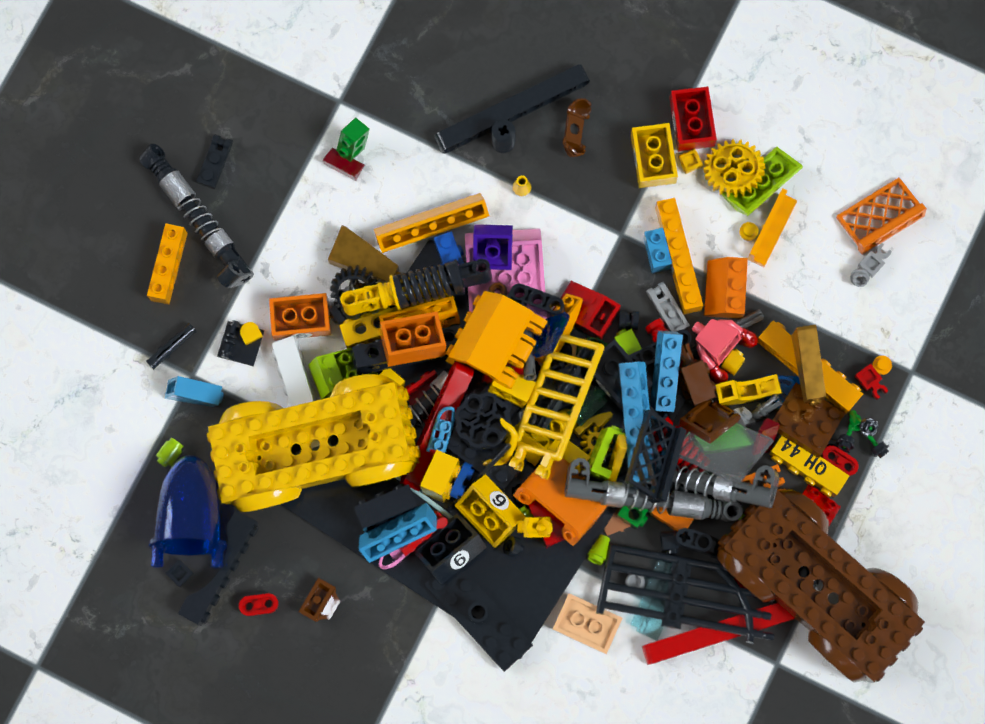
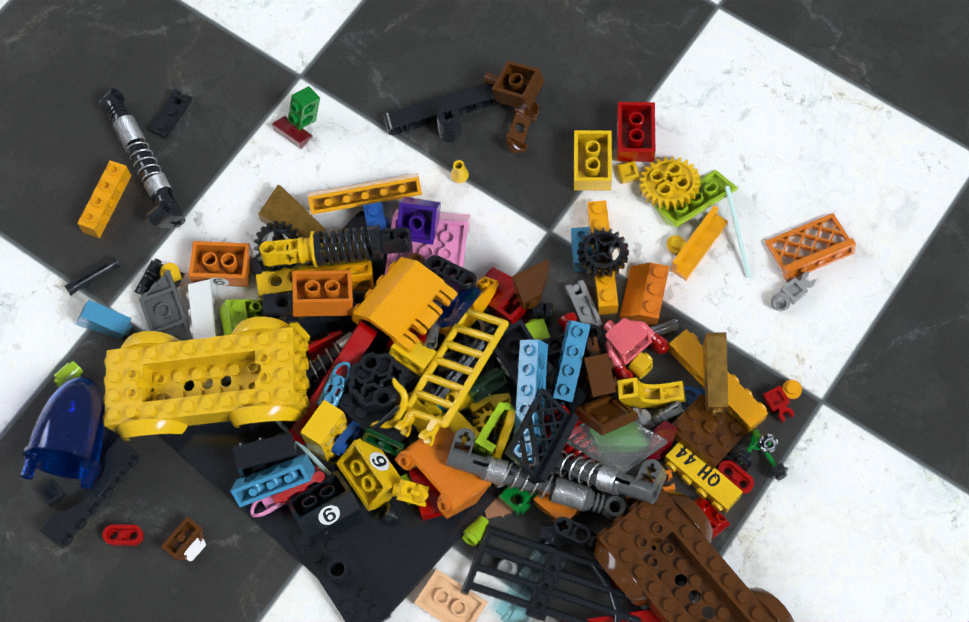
camera: 10 degrees right, 10 degrees down
(253, 372) = (164, 308): none -> dark grey wing
(499, 481) = (382, 442): none -> dark green slope
(566, 88) = (516, 85): none -> reddish brown brick
(616, 301) = (531, 284): none -> reddish brown slope
(676, 250) = (613, 242): none -> black gear
(808, 210) = (737, 230): none -> light aqua axle

